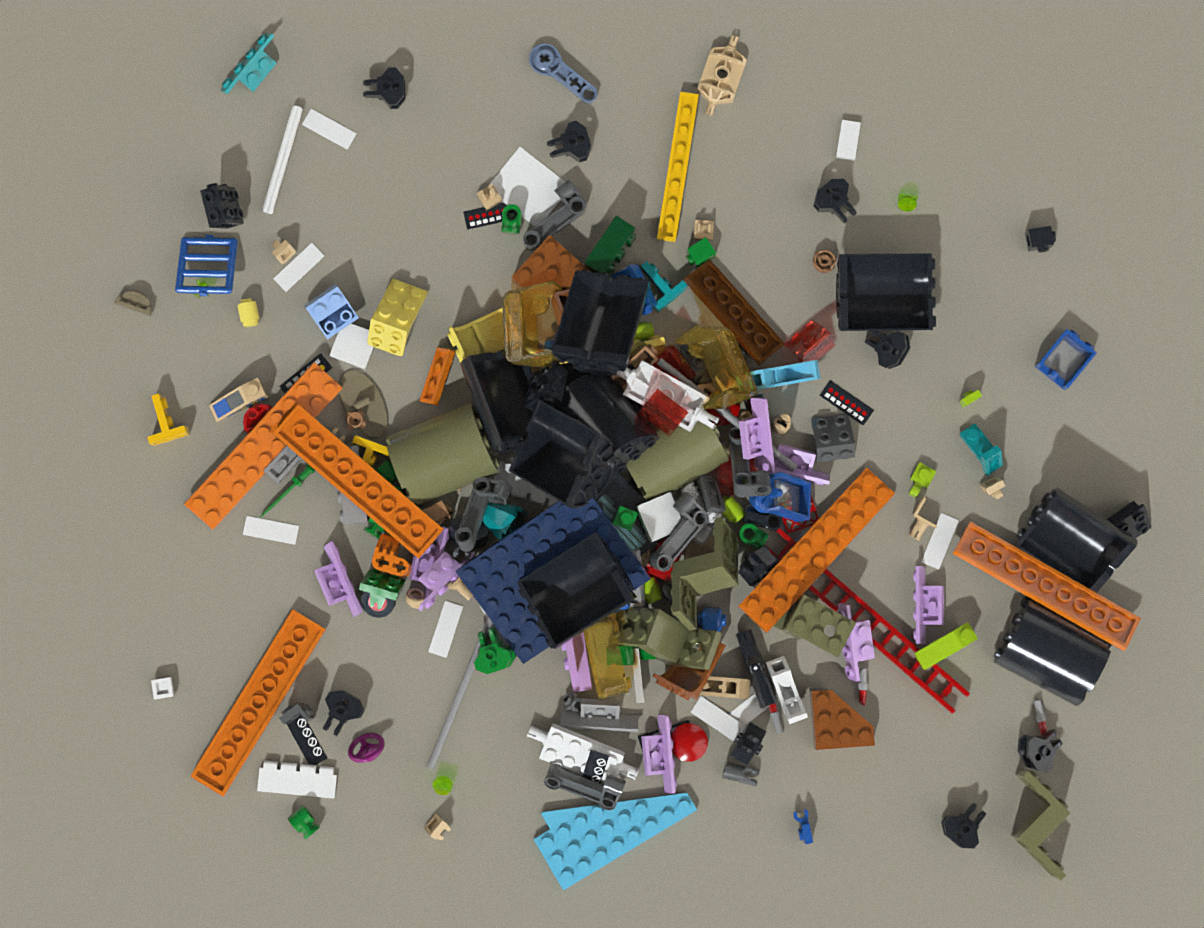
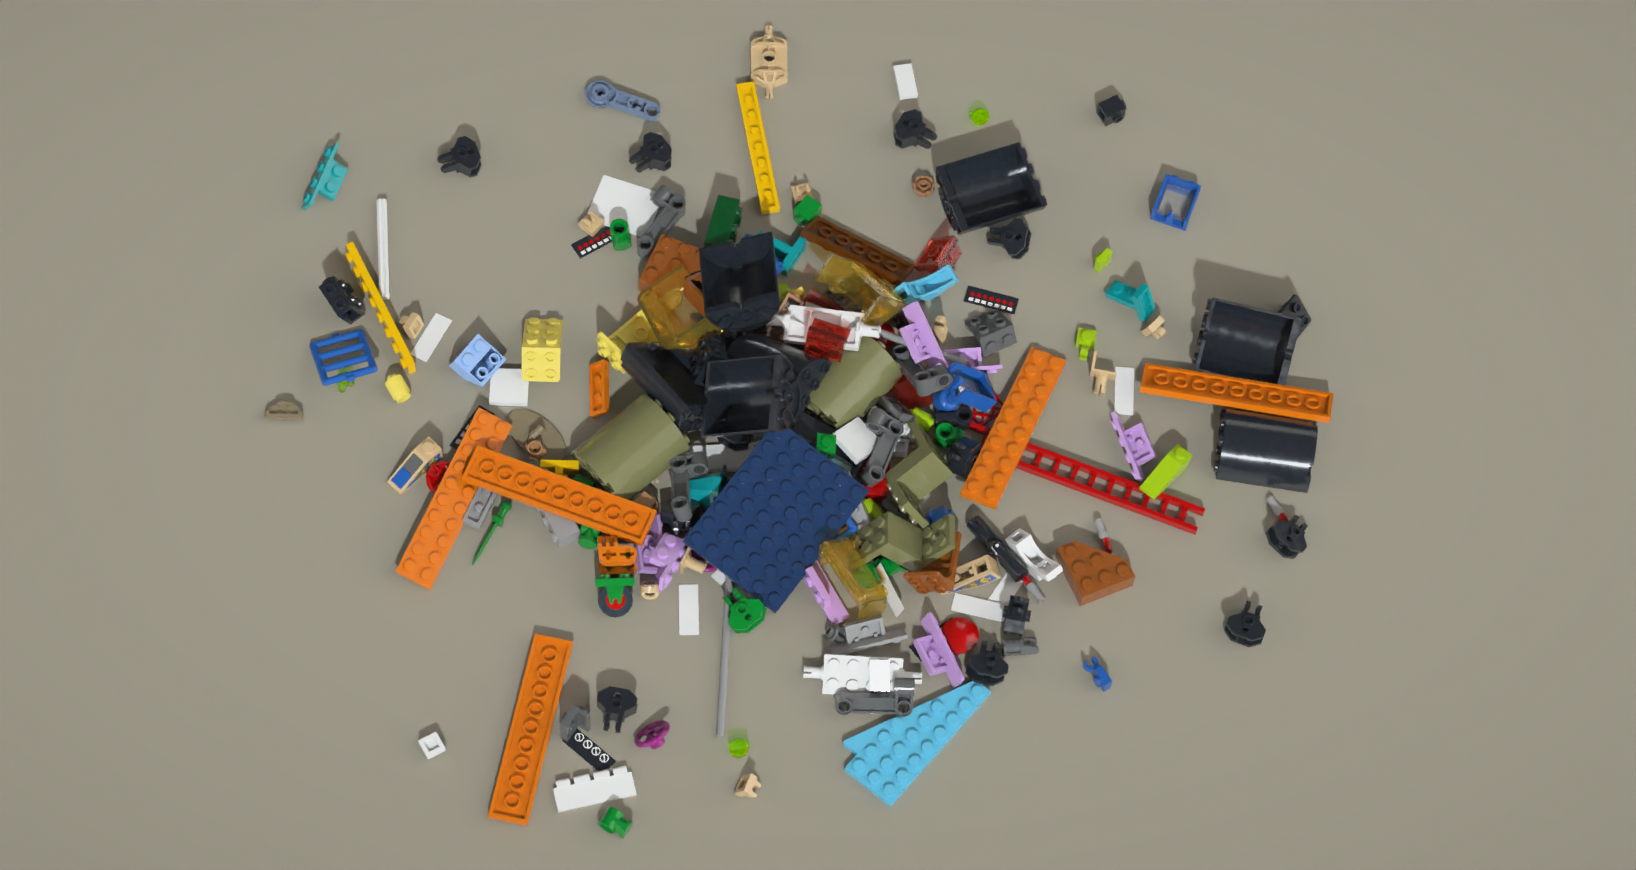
camera: 25 degrees left, 20 degrees down
(166, 423) = (356, 514): yellow bracket -> none
(257, 215) = (382, 312): none -> yellow plate
(270, 530) = (486, 574): white sticker -> none
(329, 129) = (417, 211): white sticker -> none
(335, 581) = (569, 596): lavender bracket -> none
(576, 590) = (804, 511): black cylinder -> none
(704, 783) = (987, 664): none -> black hinge
(809, 618) = (1030, 480): olive bracket -> none
(859, 644) = (1080, 493): lavender bracket -> none
(1041, 823) = (1321, 581): olive bracket -> none

